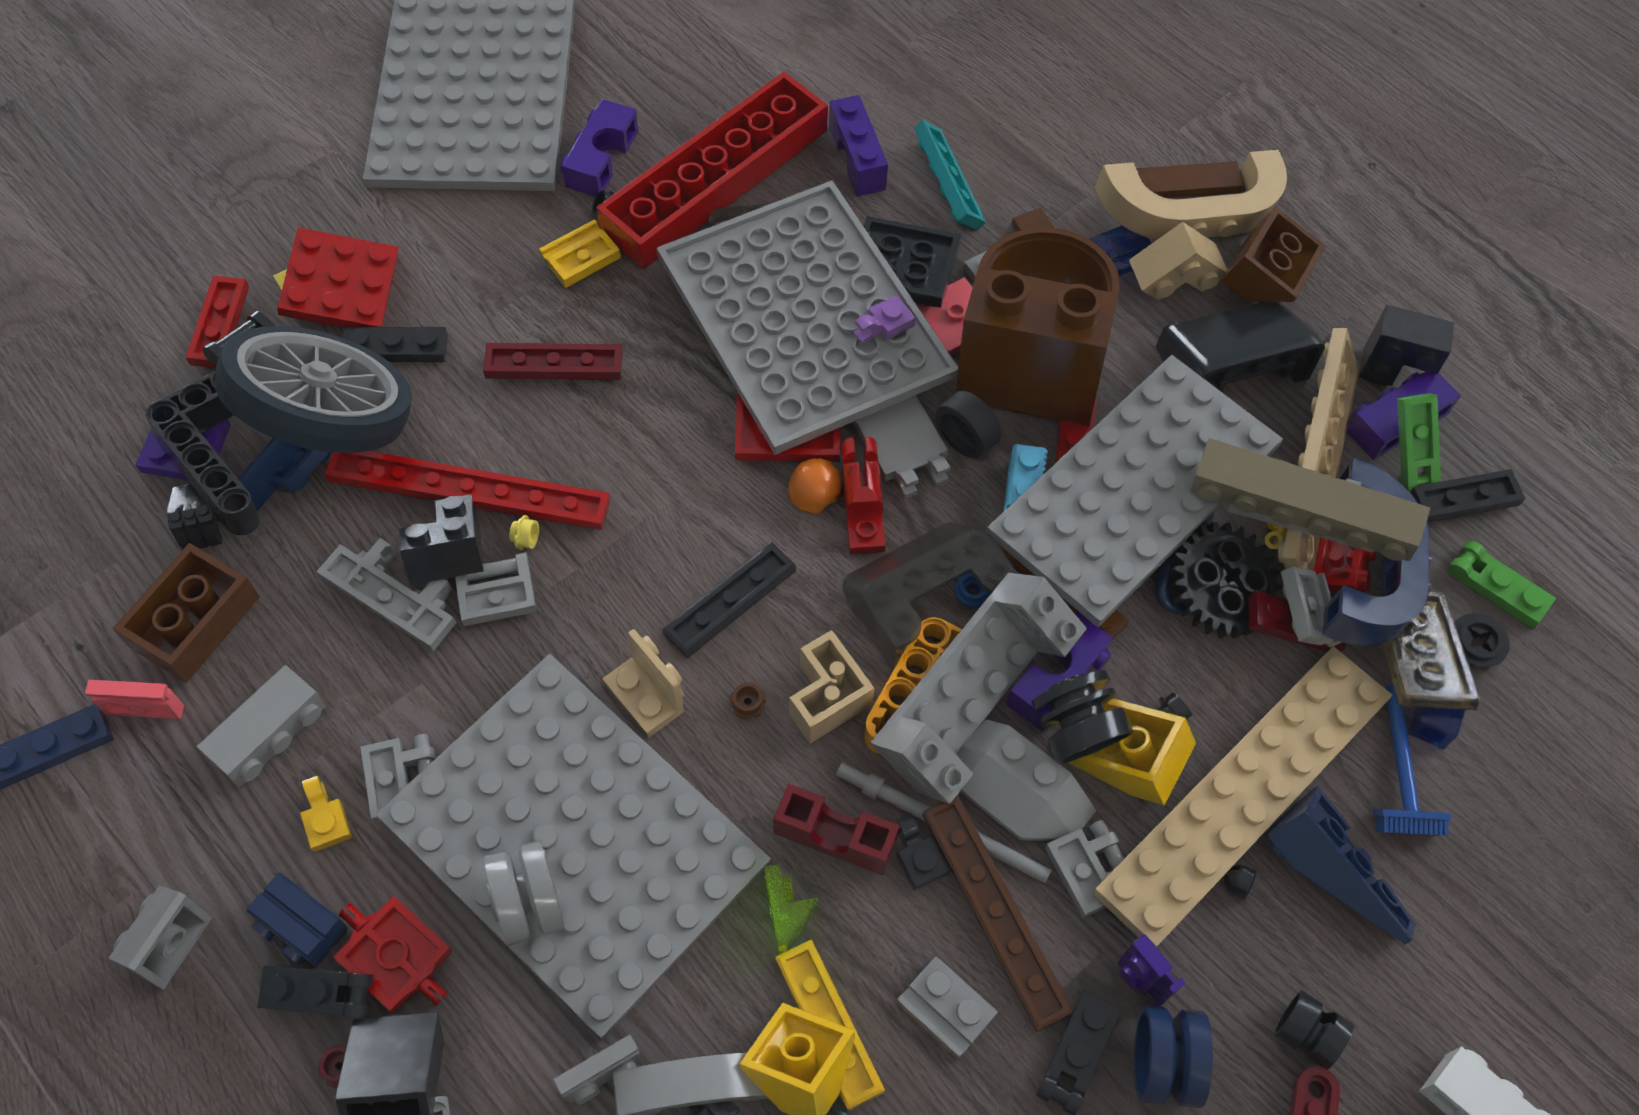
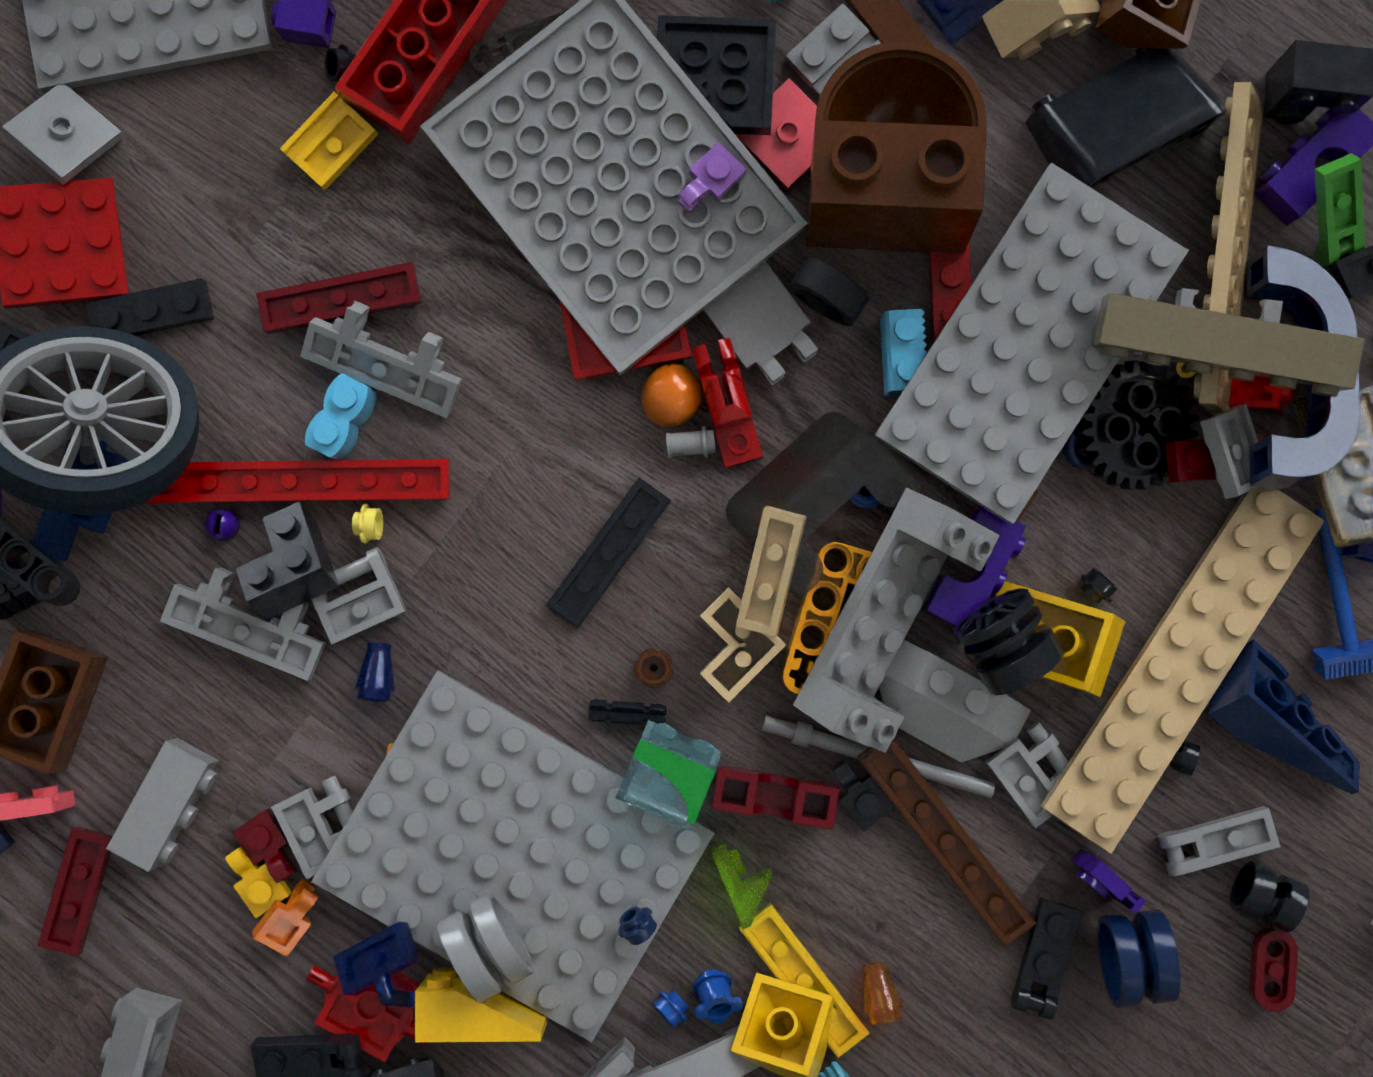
camera: 10 degrees left, 25 degrees up
(151, 789) = (76, 891): none -> dark red plate
(296, 920) = (266, 995): dark blue brick -> none
(336, 857) = (286, 923): none -> orange plate
(343, 780) = (264, 840): none -> dark red plate
(370, 208) = (62, 133): none -> light grey plate
(402, 515) = (228, 527): none -> dark purple hinge
(411, 898) = (375, 961): none -> clear blue plate
(479, 965) = (451, 1014): none -> yellow slope
(492, 657) = (376, 674): none -> clear blue cone
(528, 444) = (345, 409): none -> medium azure brick
(596, 428) = (409, 377): none -> light grey hinge
(646, 686) = (544, 681): tan bracket -> none
(675, 917) = (637, 925): none -> dark blue plate
(688, 1020) = (671, 1008): none -> blue plate
(714, 735) = (626, 712): none -> black axle
(736, 1014) = (715, 996): none -> blue brick
(740, 783) = (669, 774): none -> clear light blue slope
(824, 524) = (691, 443): none -> light grey pin
(872, 613) = (770, 571): none -> tan plate
(903, 1053) = (880, 995): none -> clear orange cone
(946, 1007) = (913, 941): light grey plate -> none
(1268, 968) = (1220, 841): none -> light grey plate

